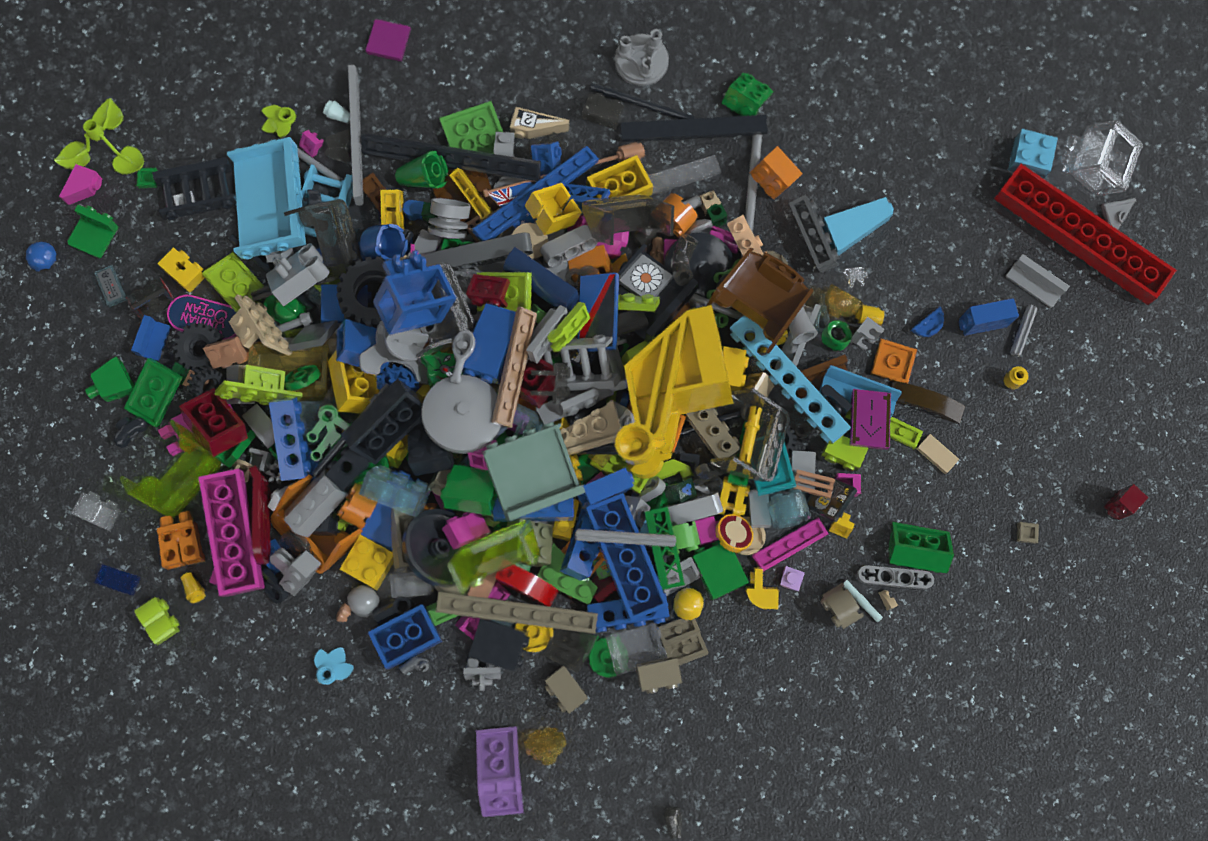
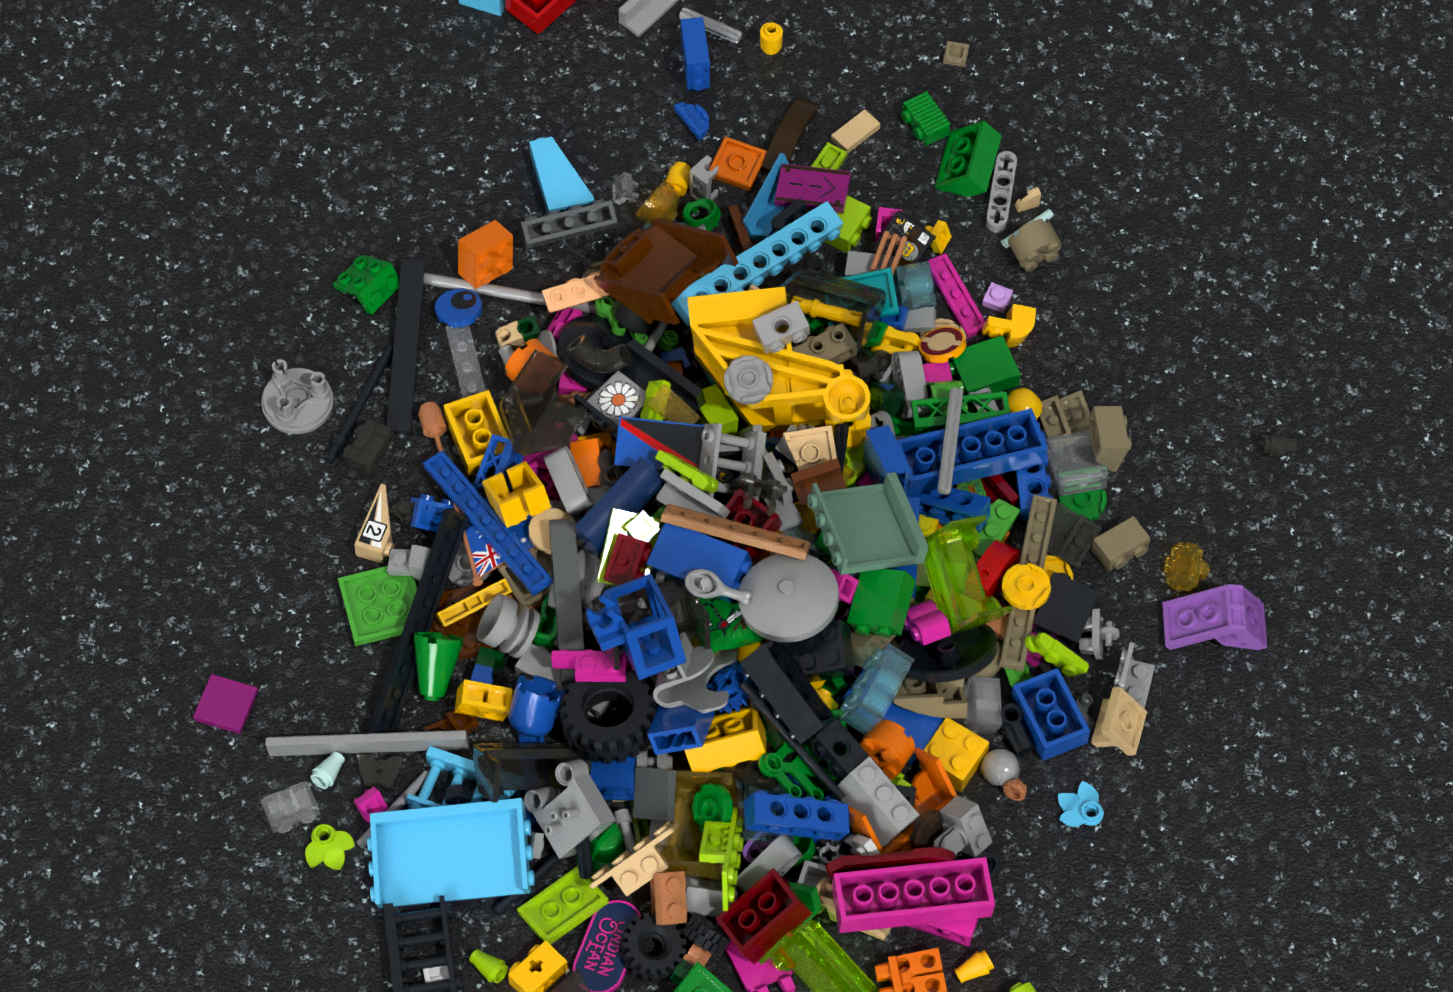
camera: 80 degrees left, 15 degrees down
(187, 236) = (490, 967): none -> lime cone
(306, 90) = (290, 807): none -> clear brick
(402, 694) = (1119, 722): none -> tan bracket
(440, 705) = (1134, 676): none -> light grey bracket
(453, 636) = (1056, 654): none -> lime hinge
(507, 609) = (1026, 586): none -> yellow tile
(516, 296) = (642, 527): none -> tile
(572, 432) = (826, 475): none -> reddish brown panel
(631, 315) = (672, 407): none -> clear yellow plate
(641, 361) = (748, 380): none -> light grey tile
(681, 369) = (788, 316): none -> light grey brick
(732, 162) = (458, 307): none -> blue tile
(754, 498) = (897, 321): none -> blue tile
(957, 509) = (926, 118): none -> green brick

